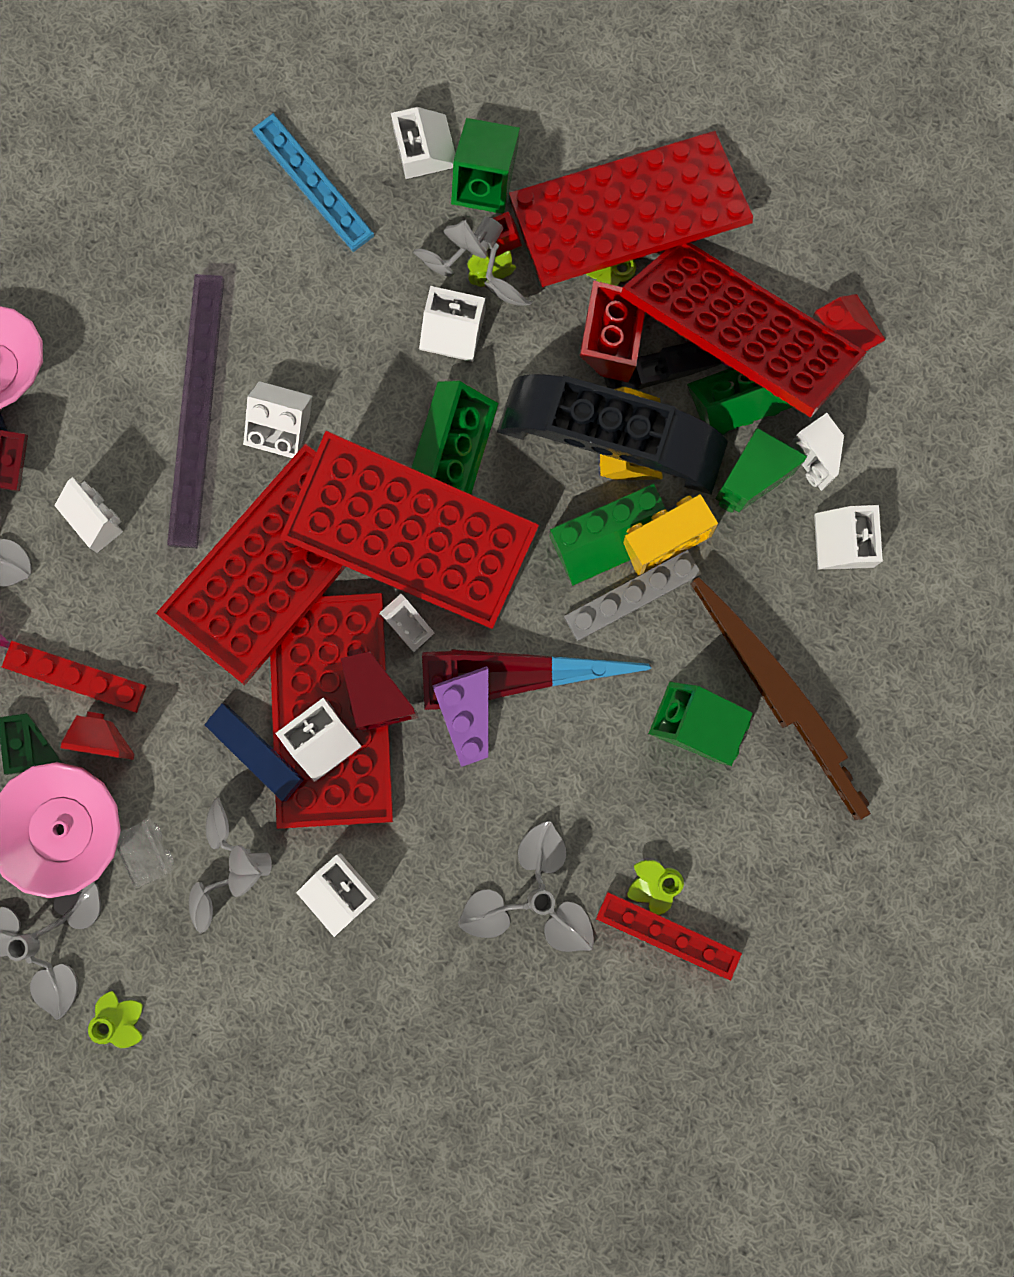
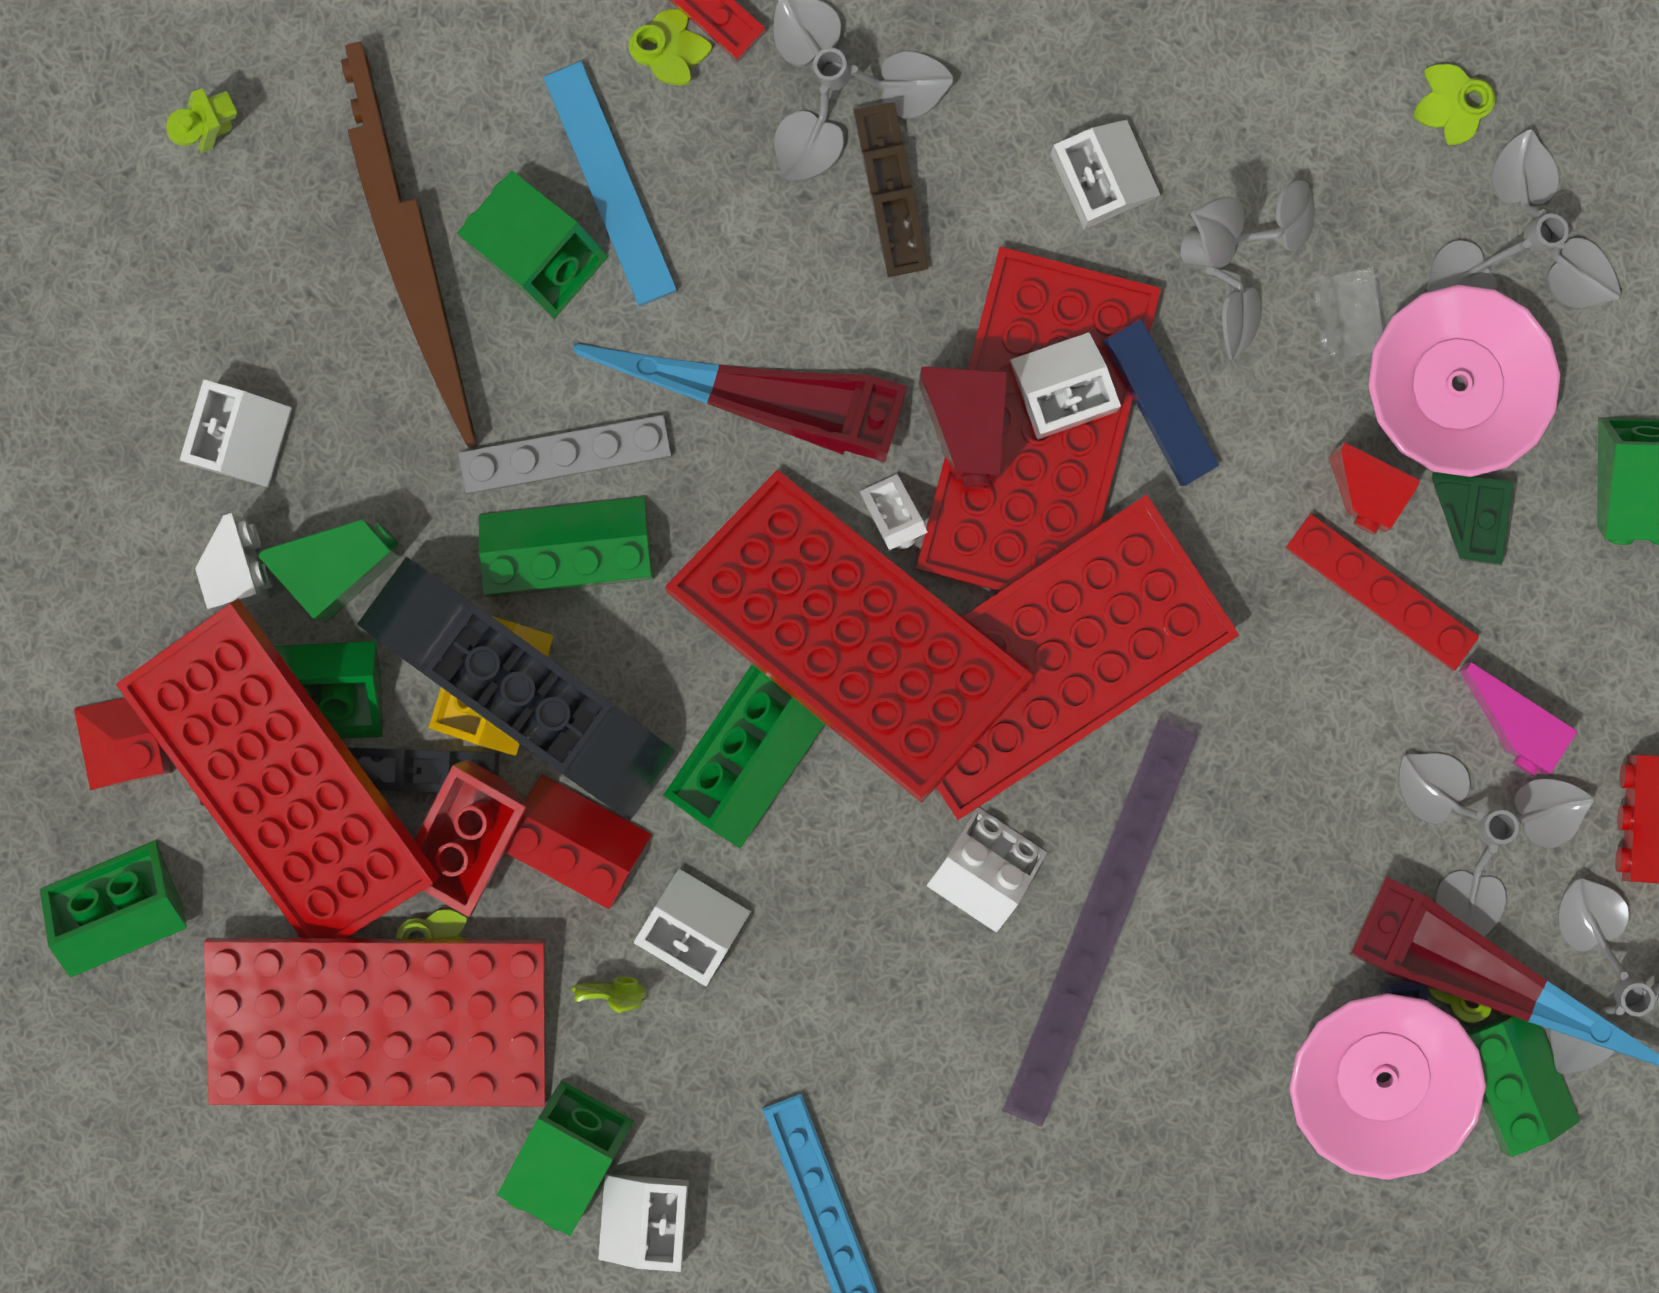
camera: 165 degrees left, 5 degrees up
(88, 514) = (1295, 810): white slope -> none
(465, 712) = (851, 361): medium lavender wing -> none
(477, 838) = (890, 188): none -> dark brown slope
(478, 244) = (605, 1027): light grey plant -> none
(509, 237) = (576, 1054): red plate -> none
(540, 349) = (577, 842): none -> red slope
(664, 782) = (610, 184): none -> dark azure tile
(669, 533) = (486, 516): yellow slope -> none
(817, 224) = (111, 909): none -> green slope
(946, 731) = (201, 120): none -> lime hips

